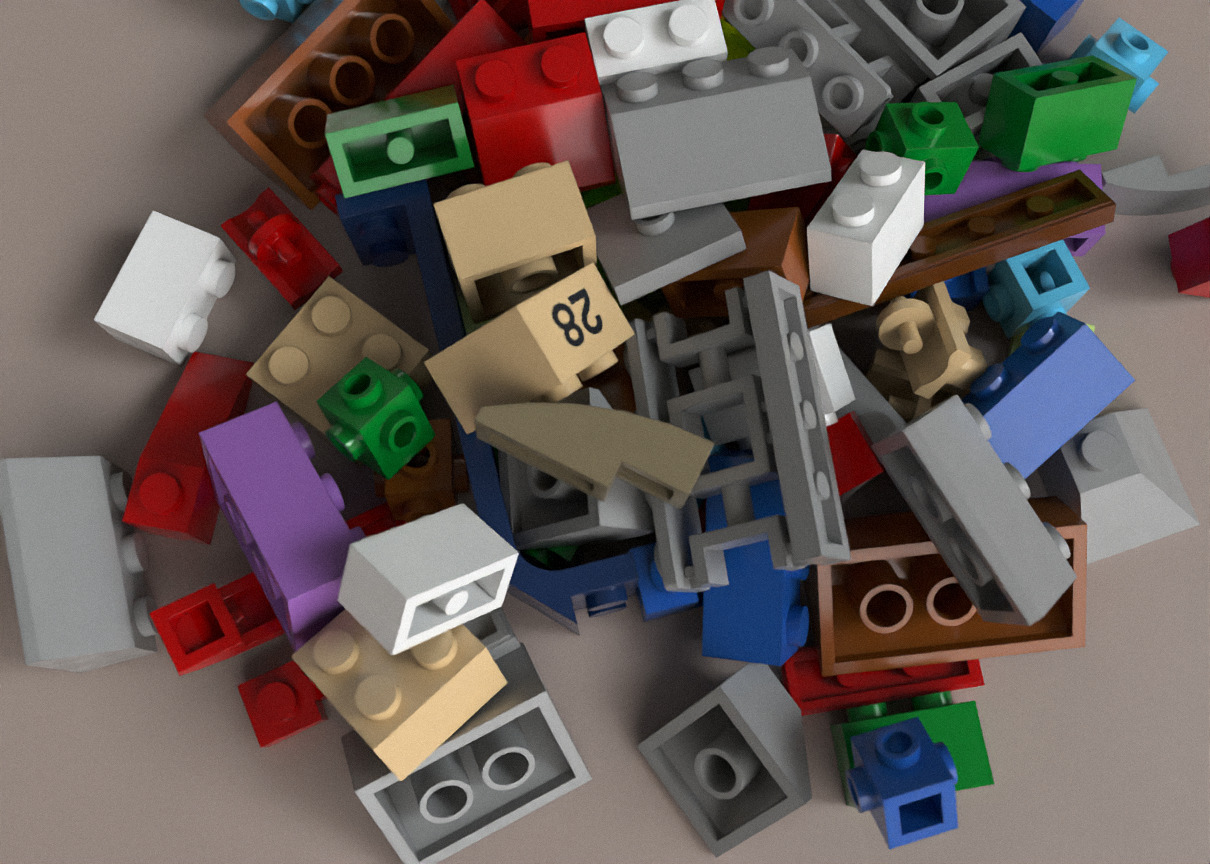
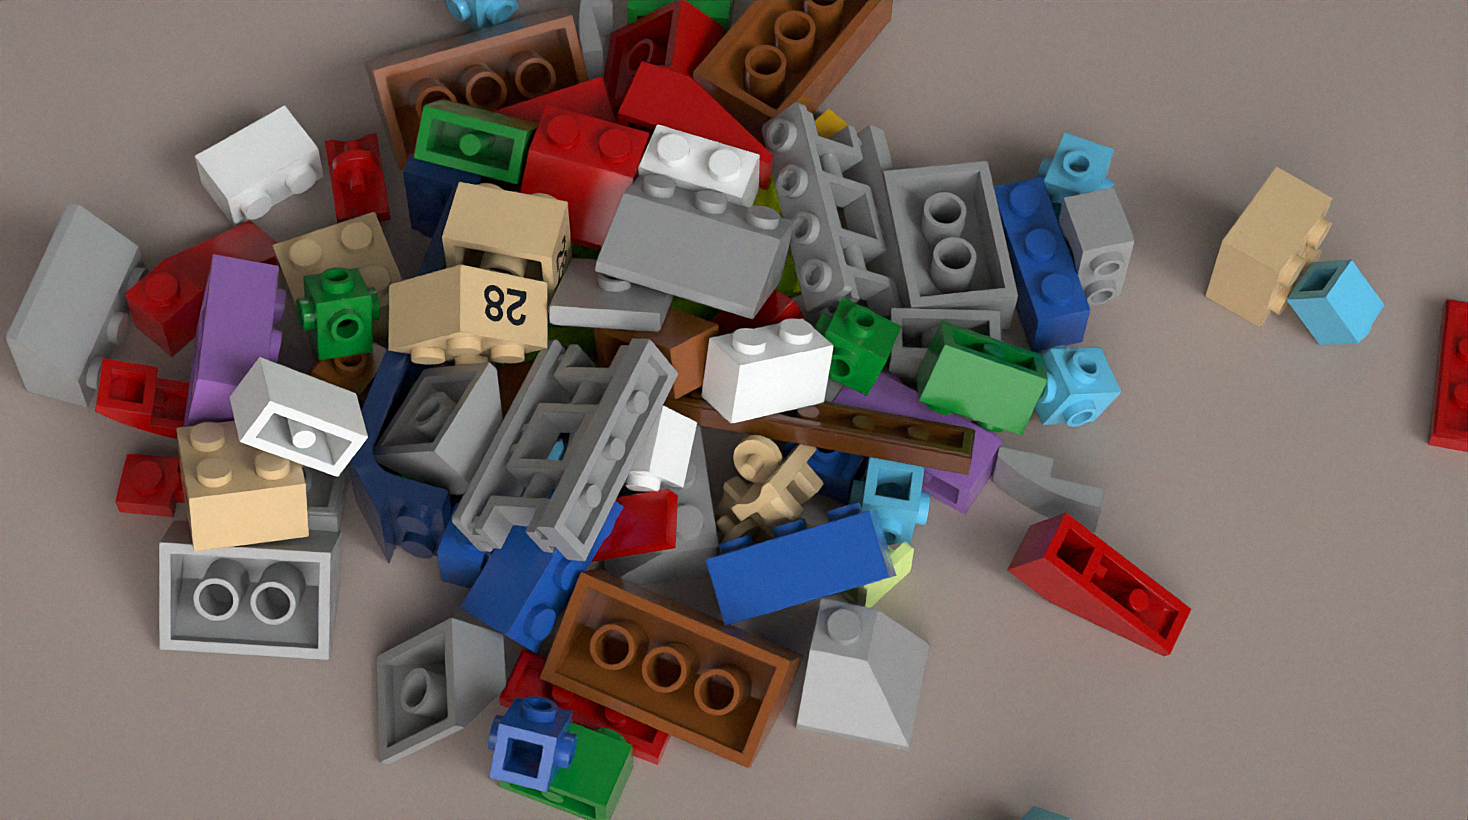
camera: 30 degrees right, 15 degrees down
(596, 446) = (463, 394): dark tan slope -> none
(977, 513) = (703, 585): light grey slope -> none

